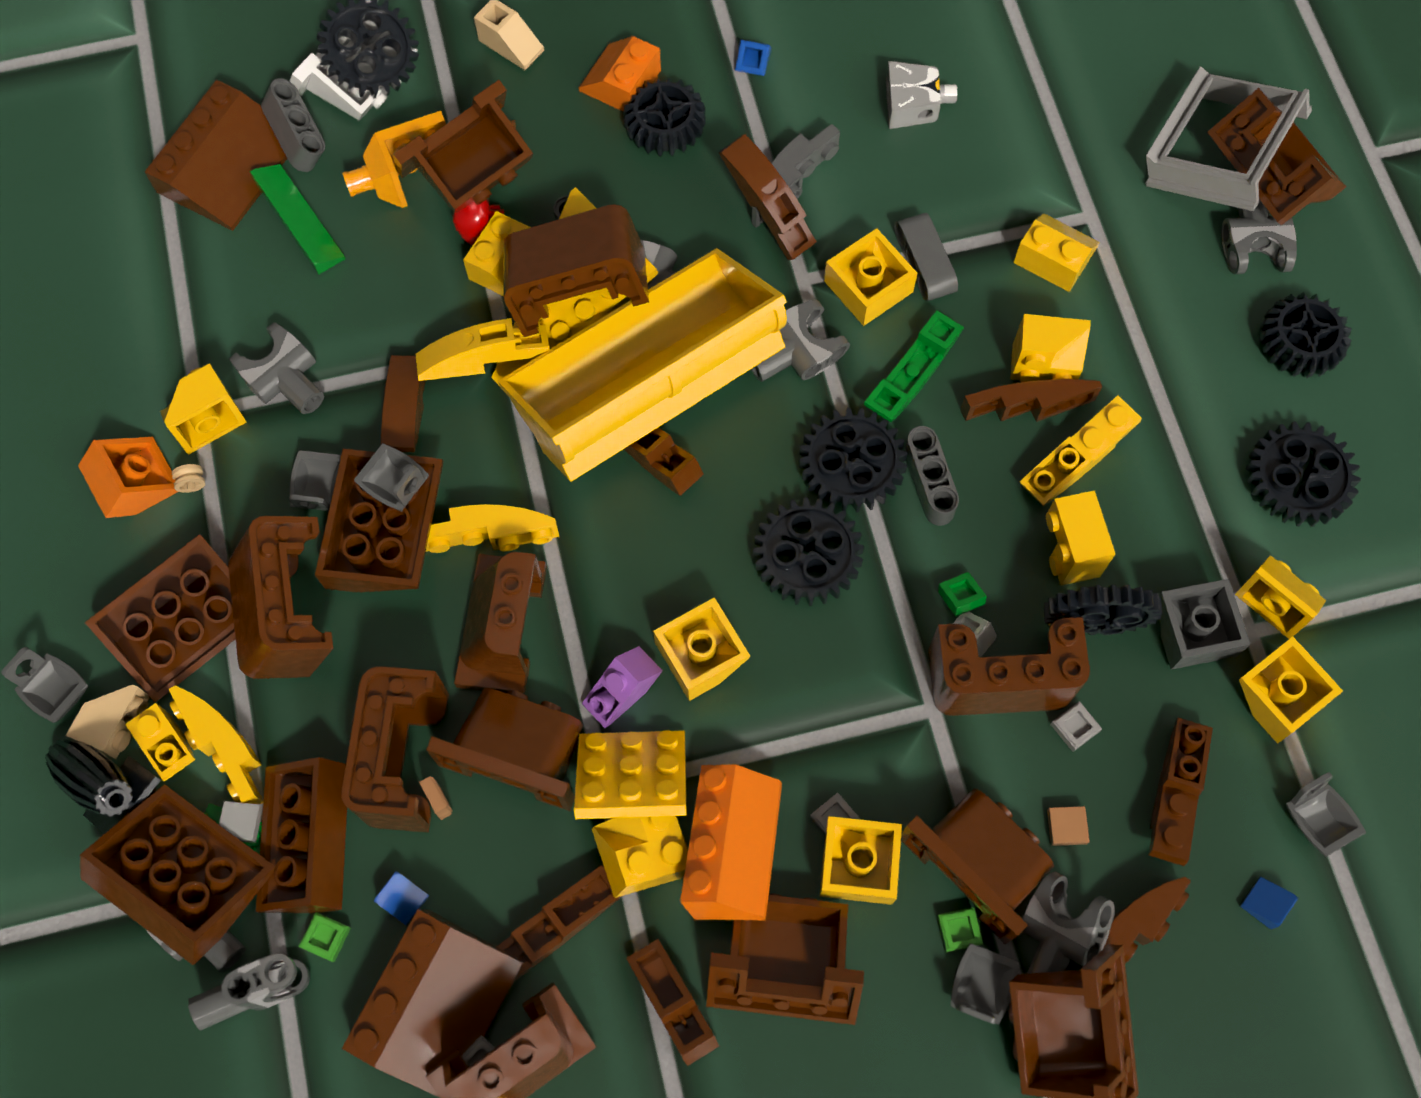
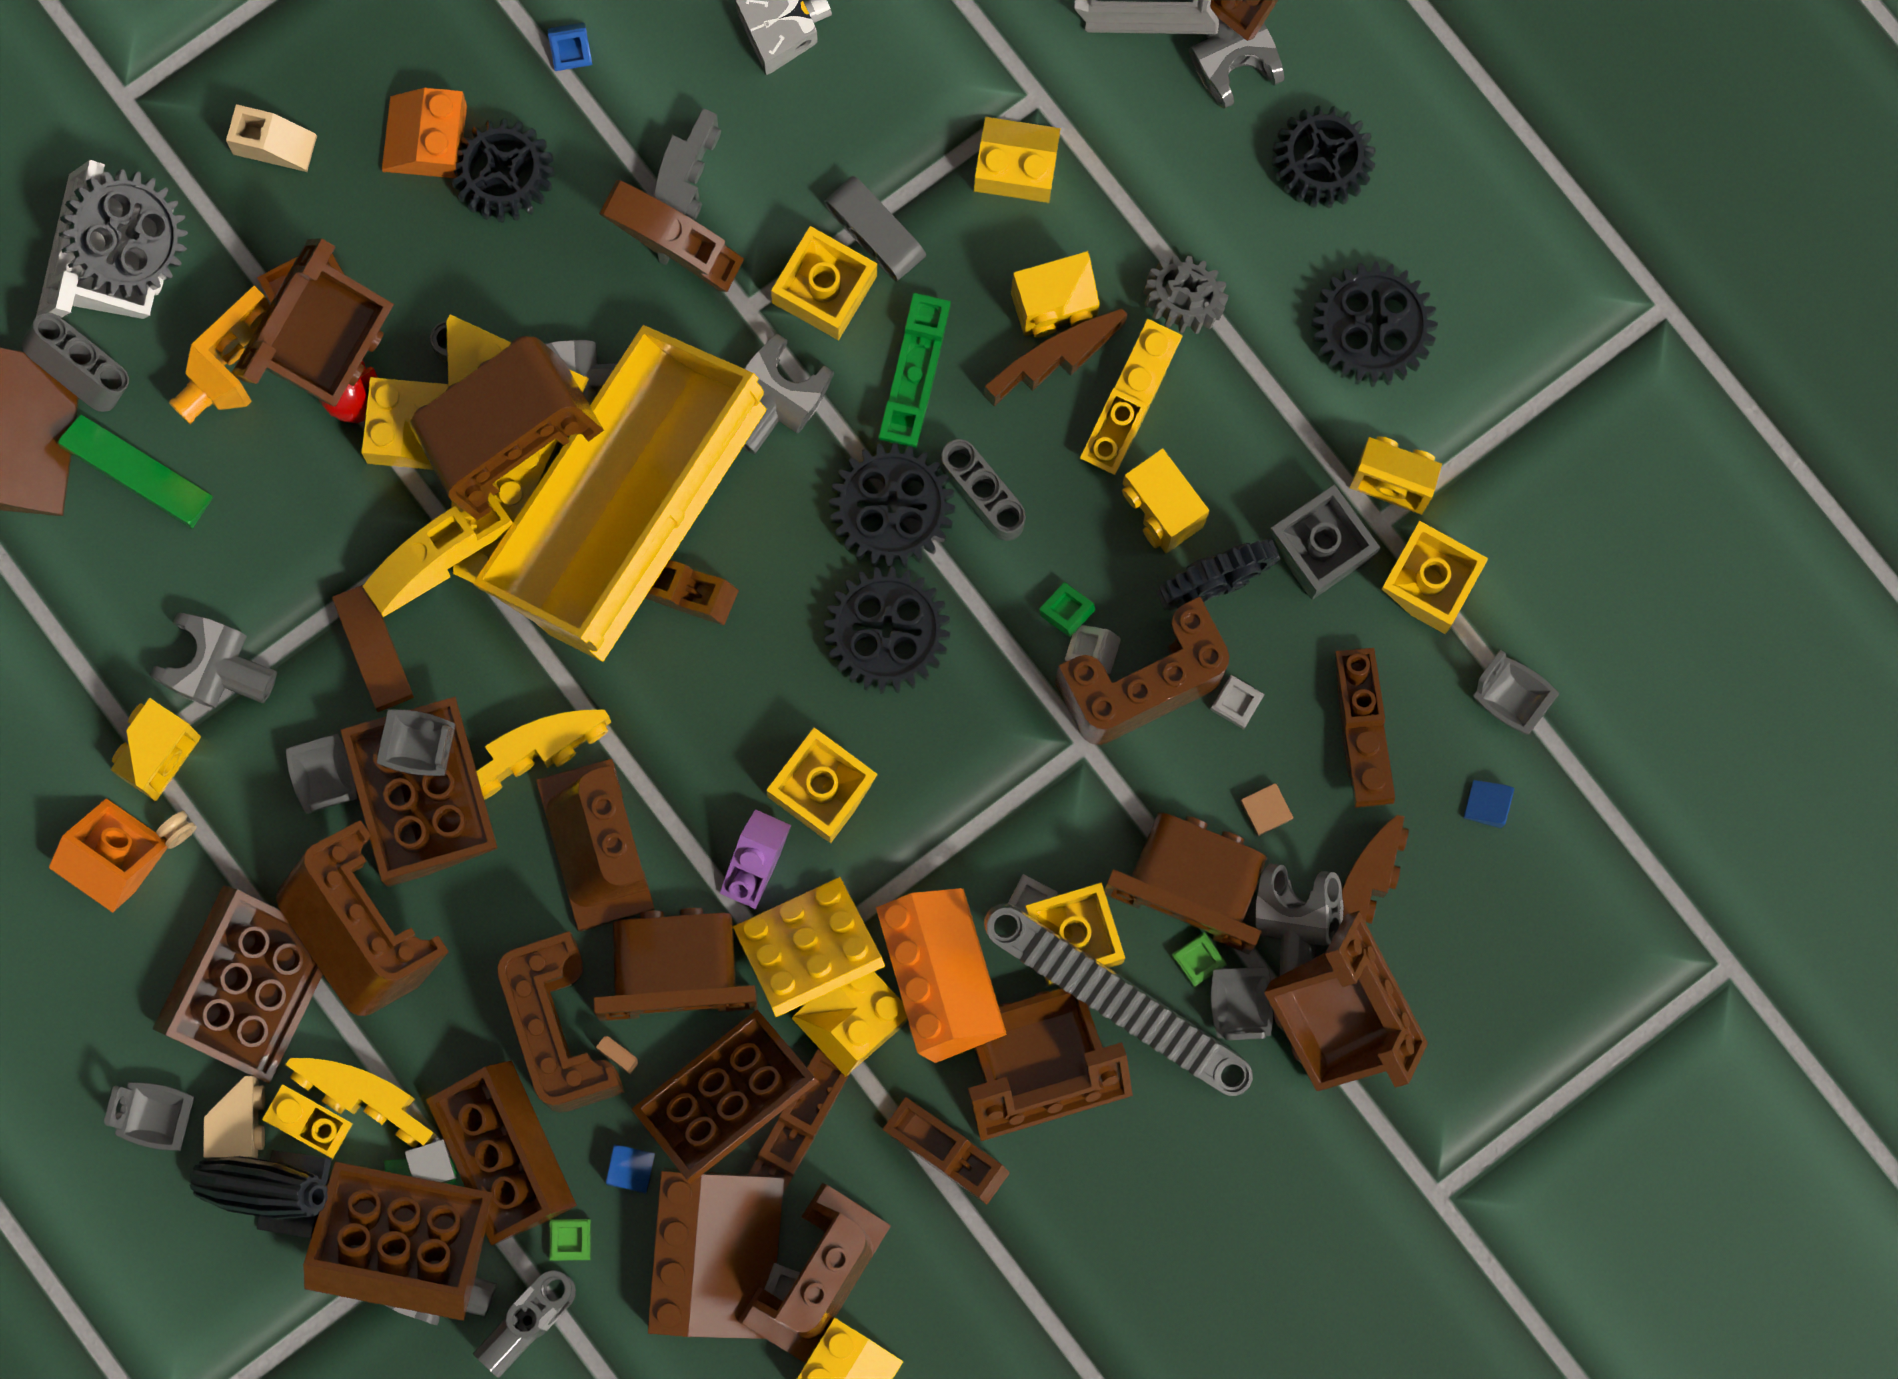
camera: 30 degrees left, 10 degrees up
(500, 868) = (724, 1096): none -> reddish brown slope
(877, 934) = (1118, 999): none -> dark grey gear
(1154, 392) = (1185, 294): none -> dark grey gear

